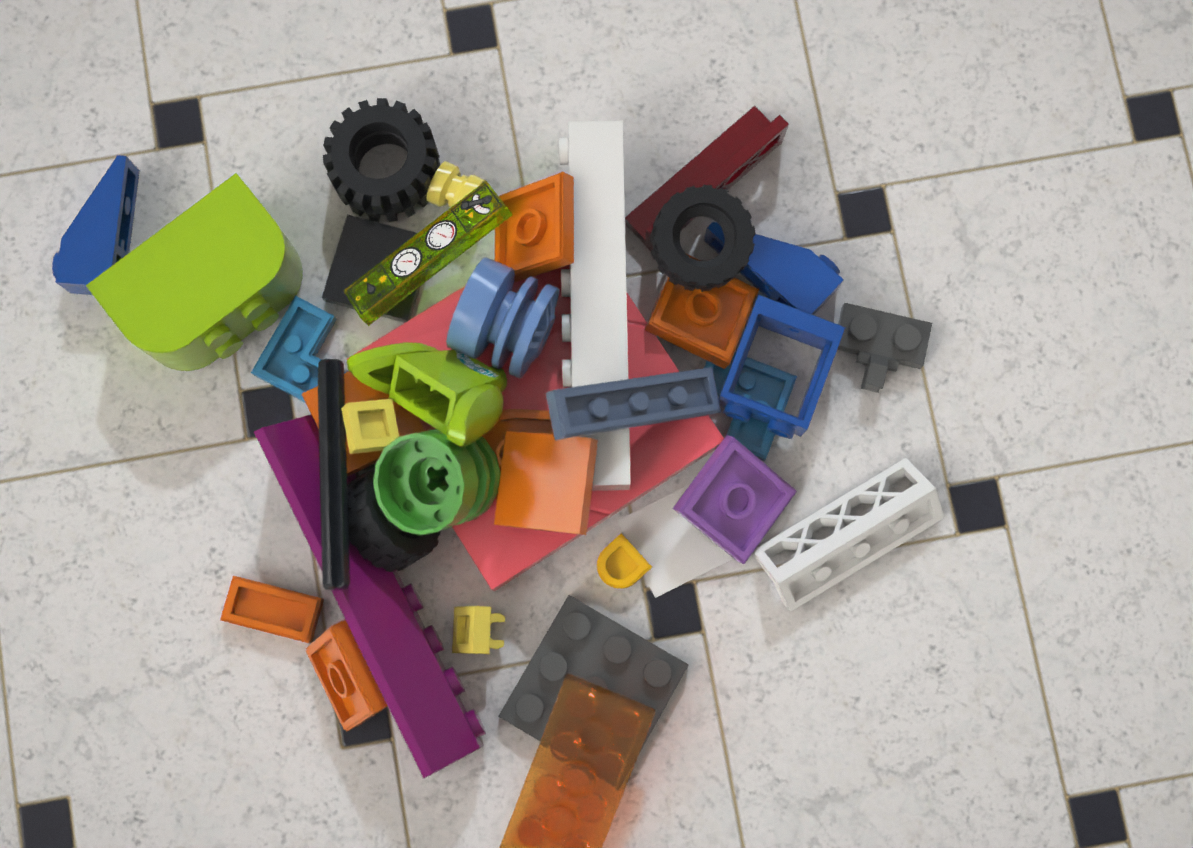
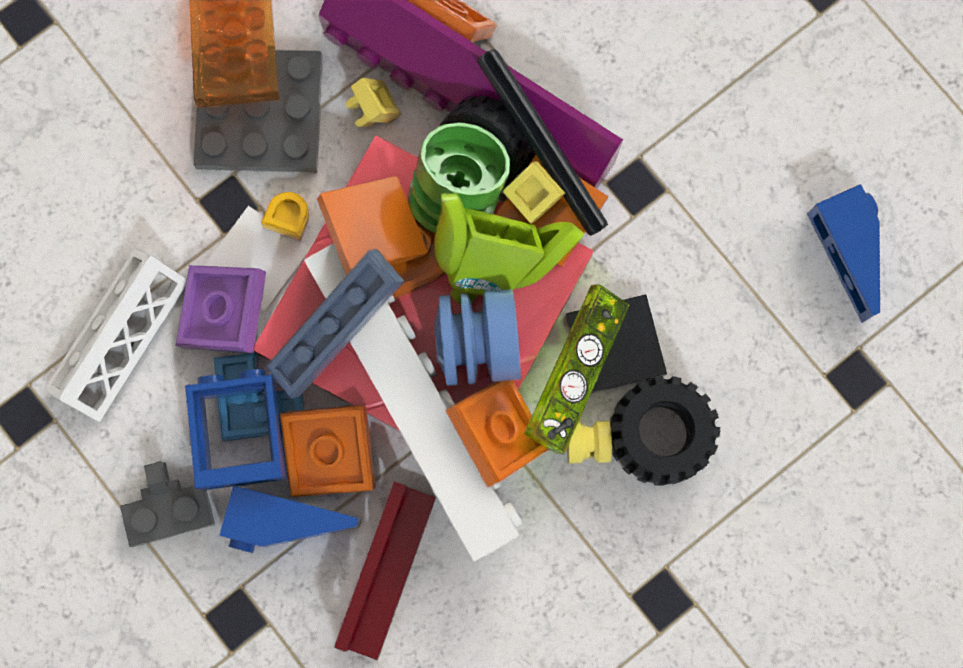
camera: 150 degrees right, 0 degrees up
(203, 280) = (743, 248): lime brick -> none
(272, 609) = (540, 39): orange tile -> none
(291, 353) = (644, 237): dark azure tile -> none
(702, 203) = (320, 492): black tyre -> none

